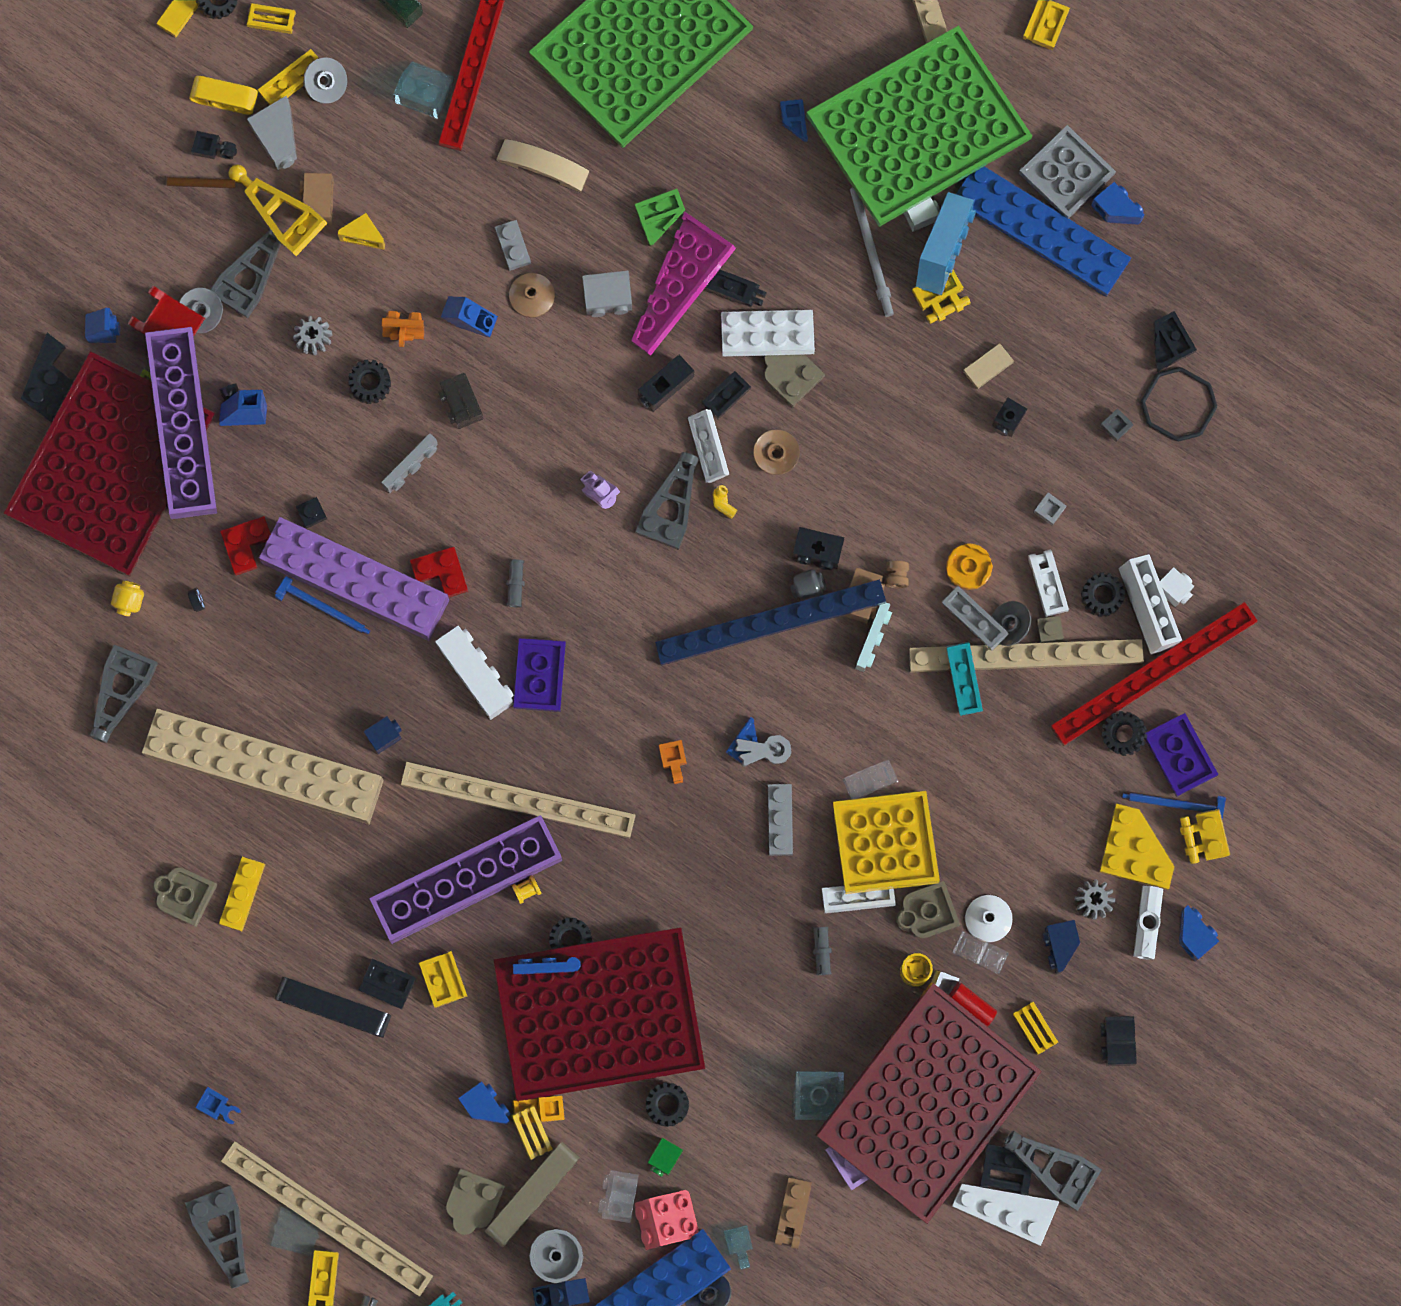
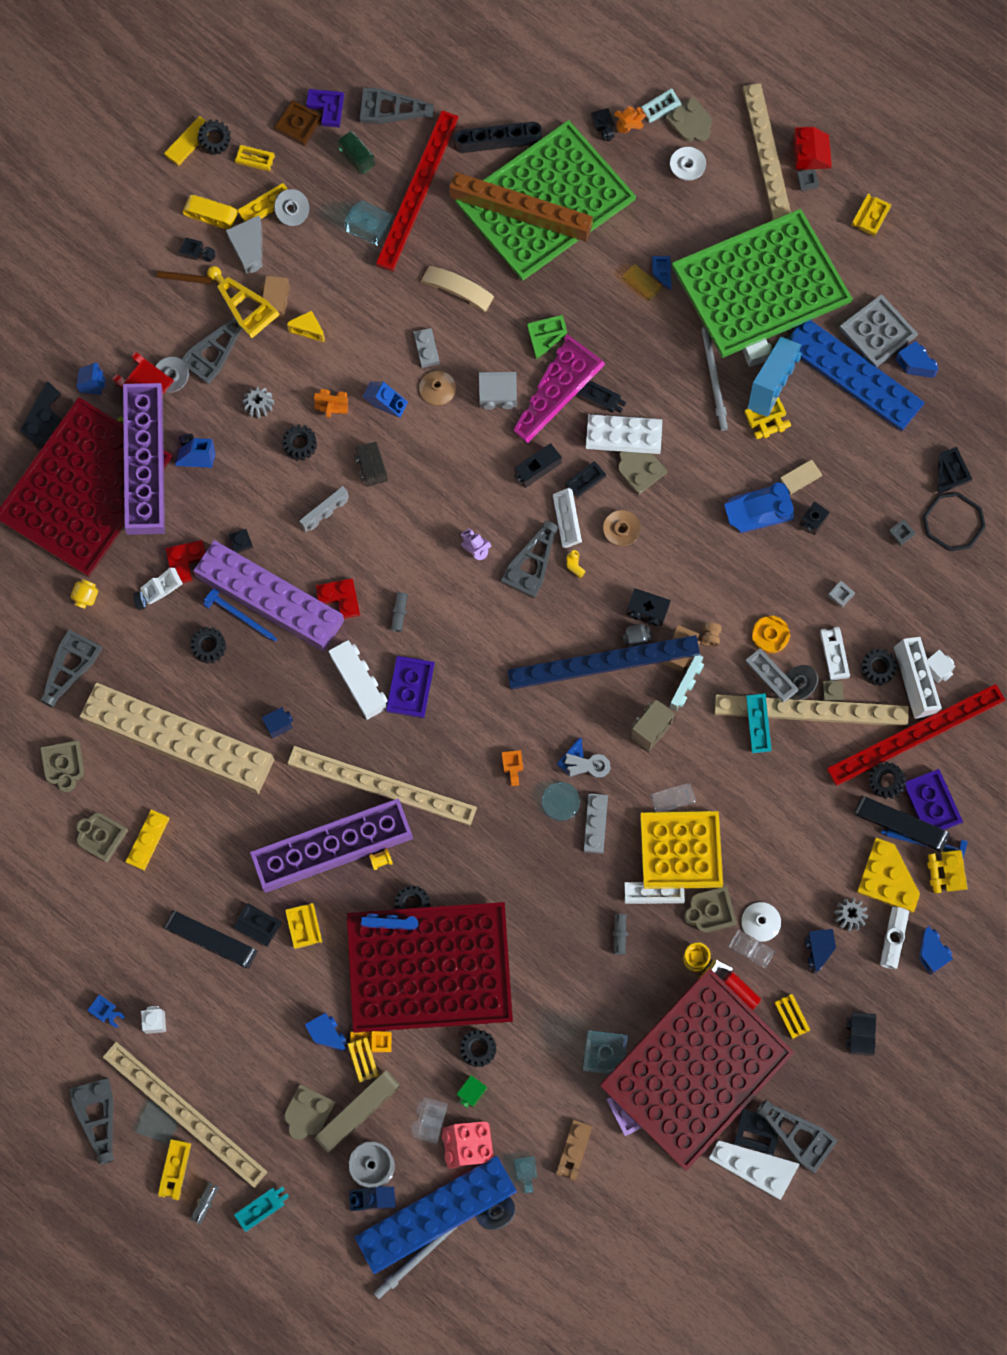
camera: 10 degrees right, 5 degrees down
(128, 812) = (63, 764): none -> dark tan plate
(221, 579) = (161, 586): none -> white slope
(276, 1111) = (153, 1020): none -> white brick
(287, 633) = (205, 634): none -> black tyre
(611, 54) = (521, 206): none -> dark orange brick
(735, 797) = (561, 801): none -> clear light blue tile
(771, 136) = (642, 282): none -> clear yellow tile
(837, 694) = (652, 725): none -> dark tan brick
(942, 410) = (760, 508): none -> blue slope
(1145, 784) = (901, 823): none -> black beam

